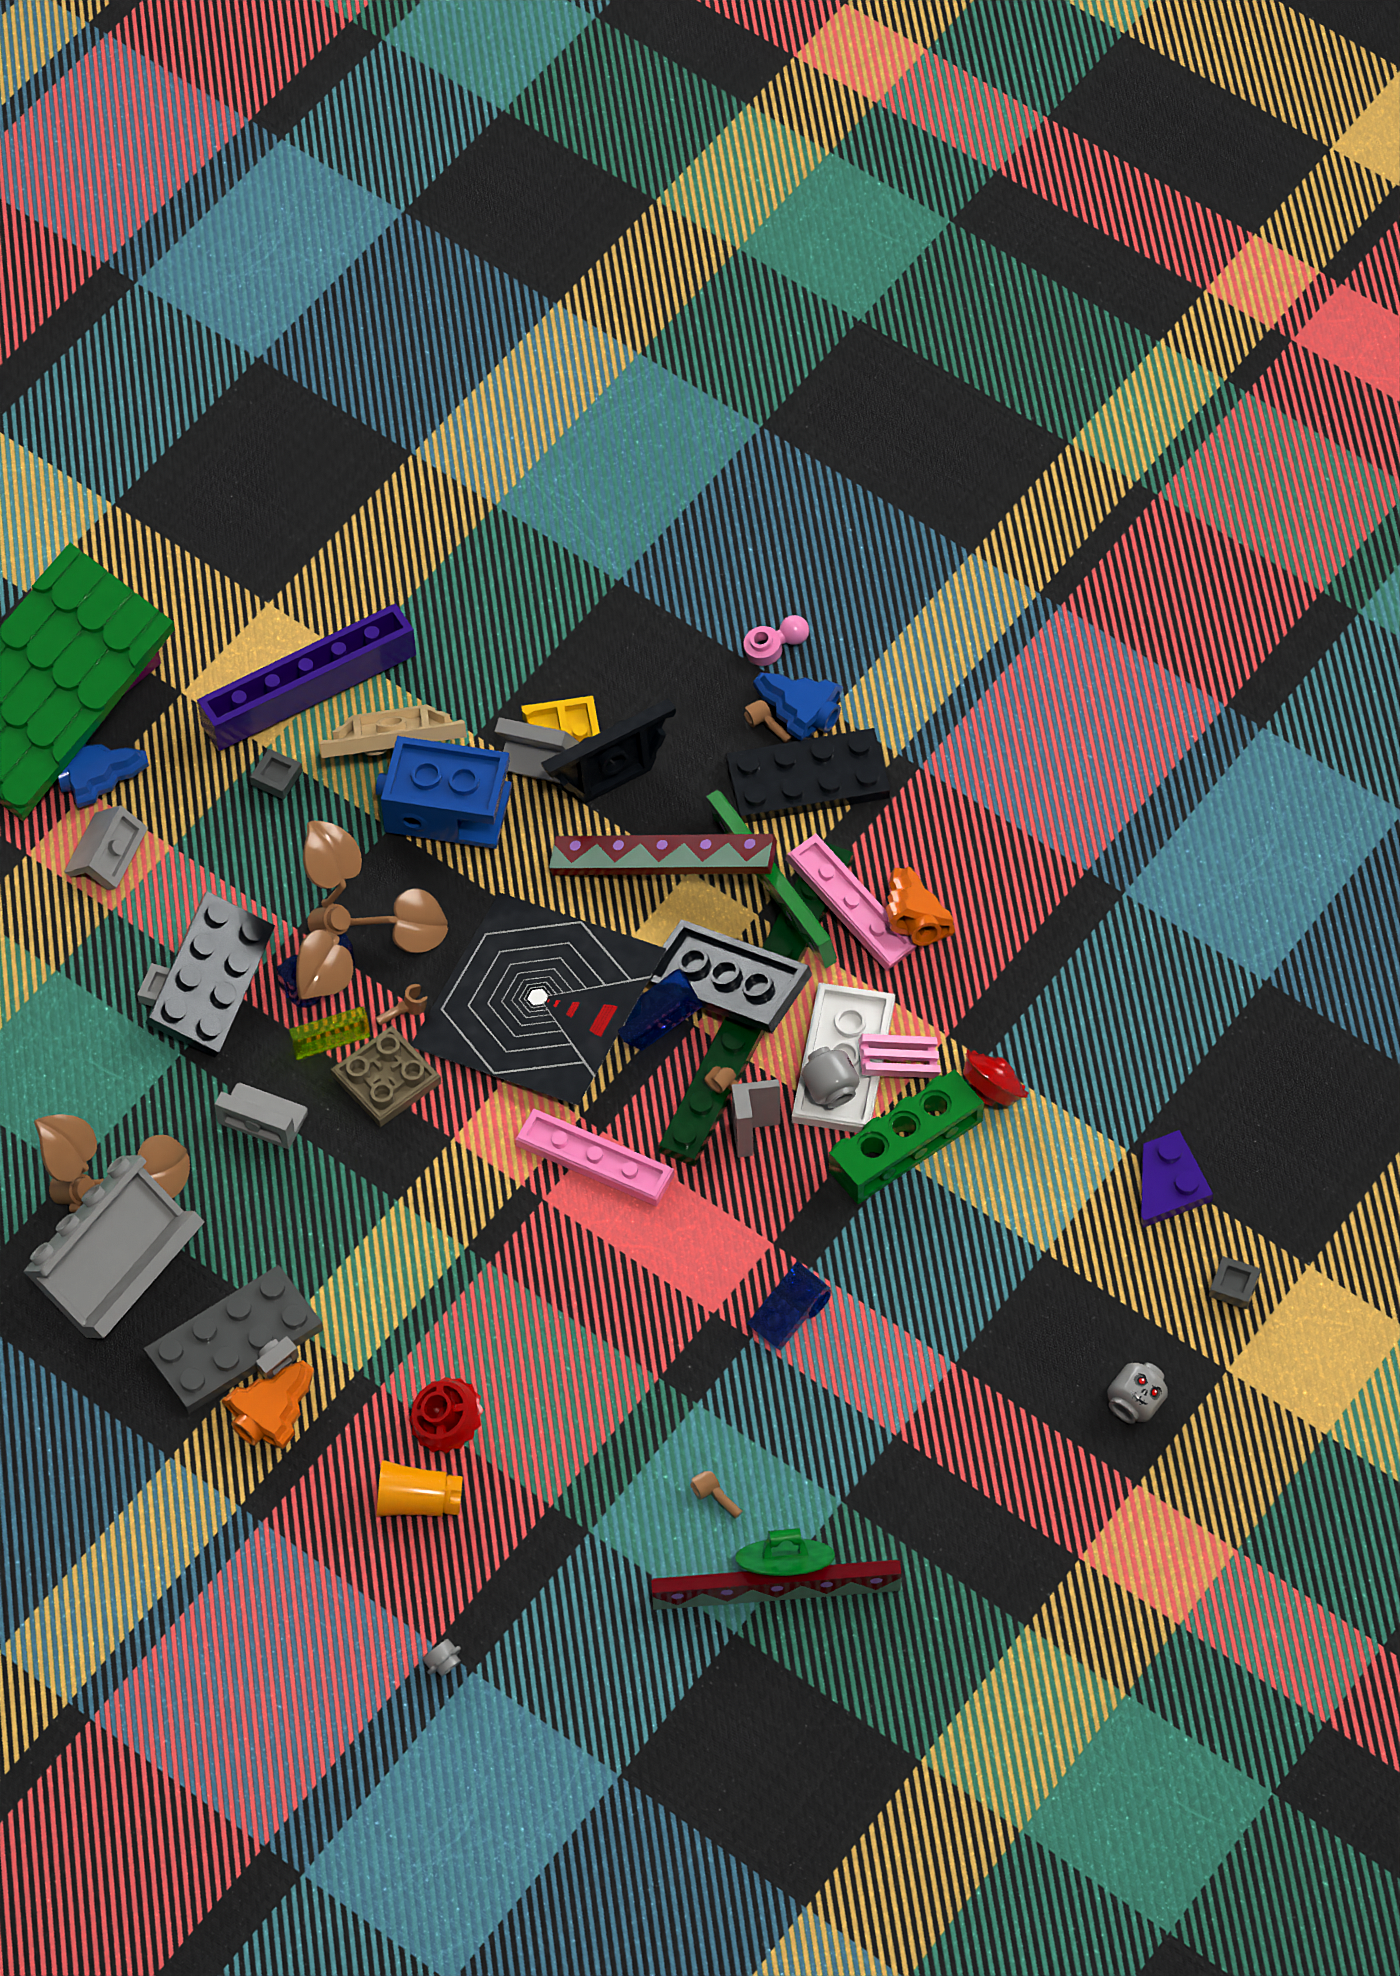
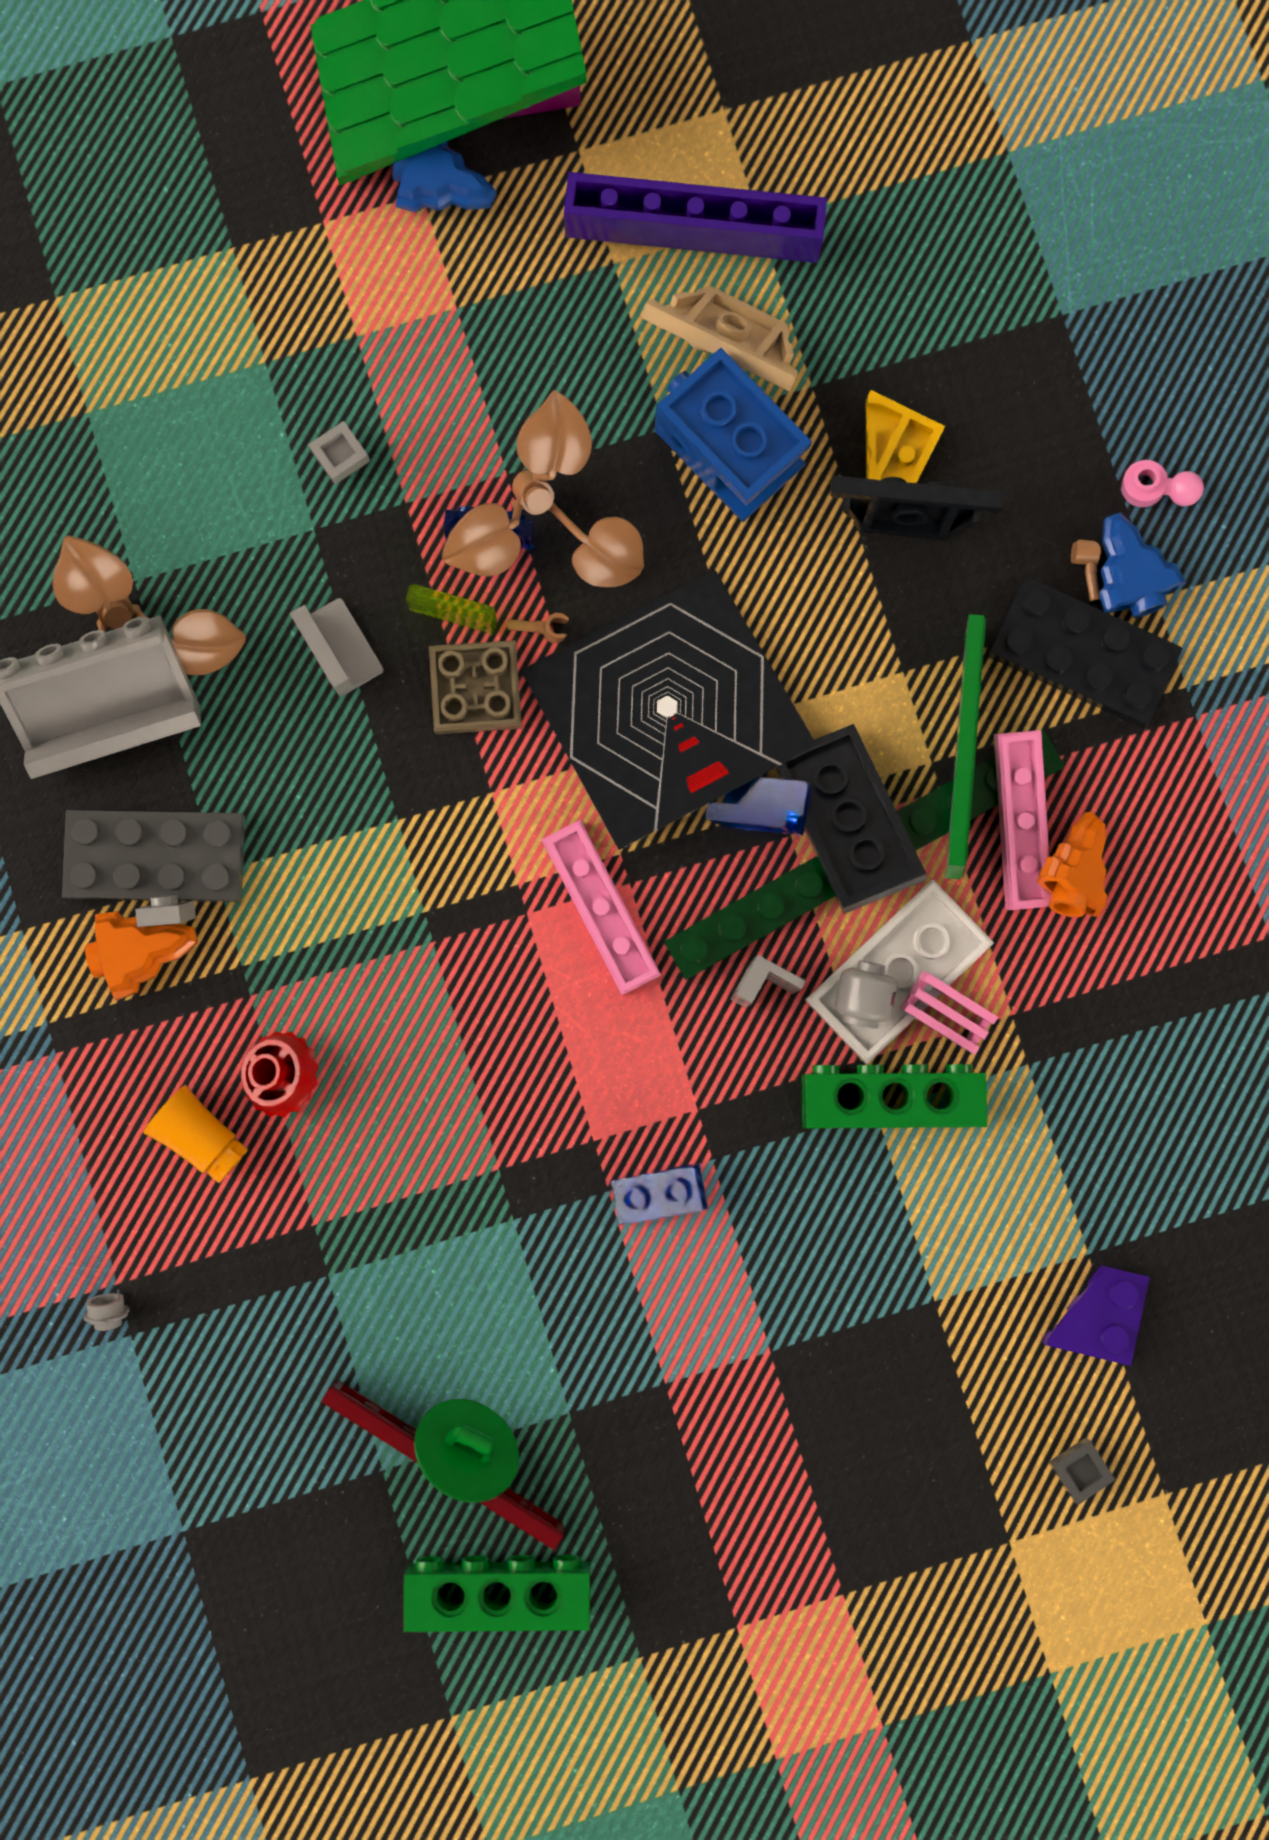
camera: 30 degrees right, 25 degrees up
(107, 846) = (393, 268): light grey panel -> none
(210, 974) = (388, 470): plate -> none
(276, 774) = (597, 300): dark grey plate -> none
(531, 745) = (846, 445): light grey panel -> none
(663, 854) = (885, 649): tile -> none
(707, 1484) = (458, 1312): medium nougat hand -> none
(720, 1079) = (765, 922): medium nougat hand -> none
(844, 1687) = (522, 1611): none -> green brick
(993, 1079) = (1015, 1104): red piece -> none
(1137, 1392) = (907, 1519): light grey head -> none

